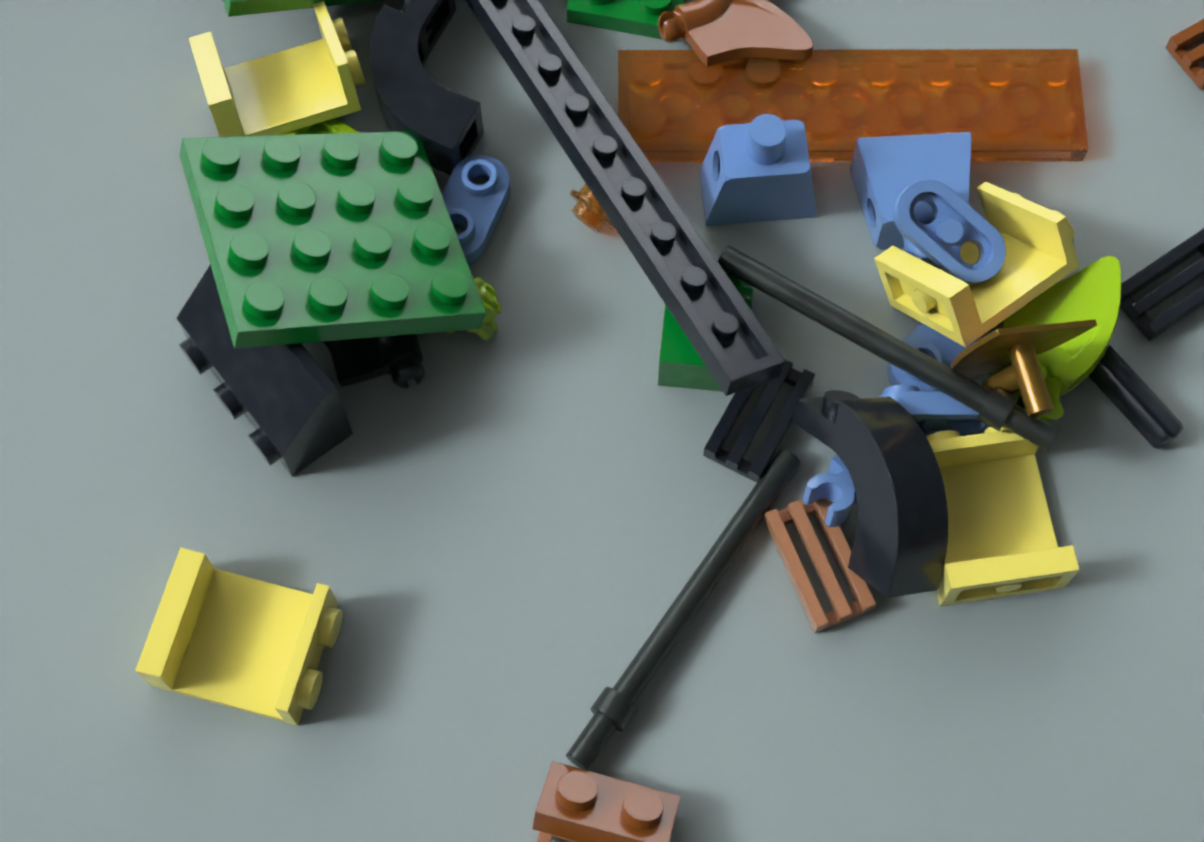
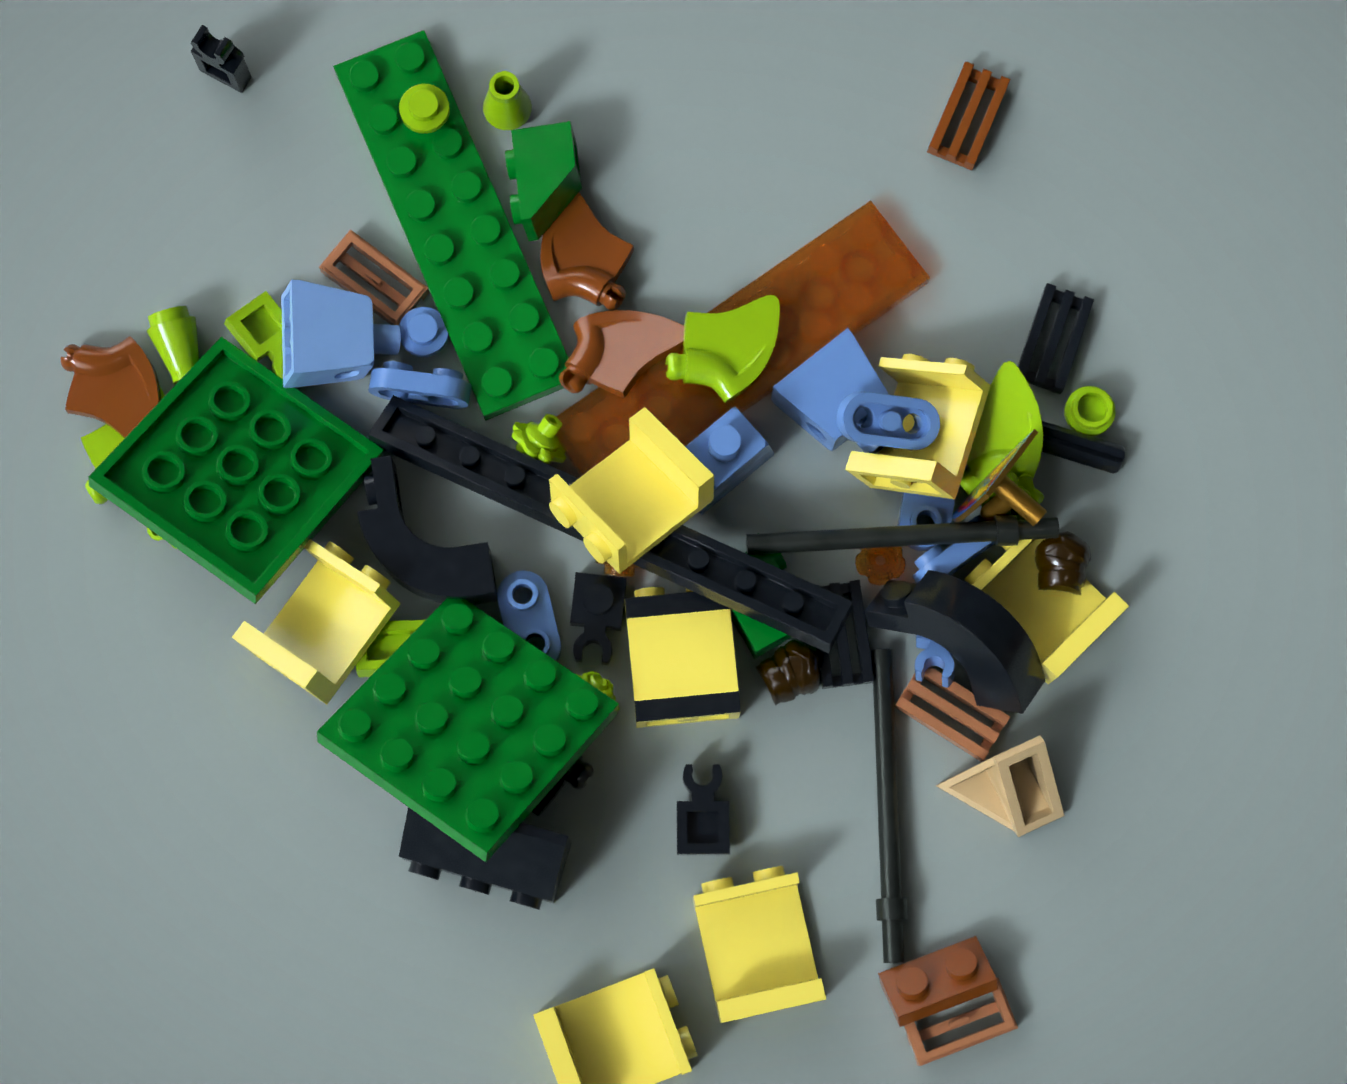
camera: 40 degrees left, 10 degrees up
(453, 647) = (757, 945): none -> light yellow panel
(491, 493) = (703, 822): none -> black plate
(539, 239) = (597, 608): none -> black plate
(579, 328) = (681, 658): none -> light yellow panel
(601, 56) = (540, 440): none -> lime plant
(645, 141) = (634, 494): none -> light yellow panel
(682, 414) = (791, 672): none -> dark brown arm
(827, 670) = (1012, 787): none -> tan slope
(837, 81) = (727, 347): none -> lime arm
(857, 358) = (880, 574): none -> clear orange plate
(1038, 488) = (1062, 563): none -> dark brown arm
(1170, 370) = (1089, 410): none -> lime plate

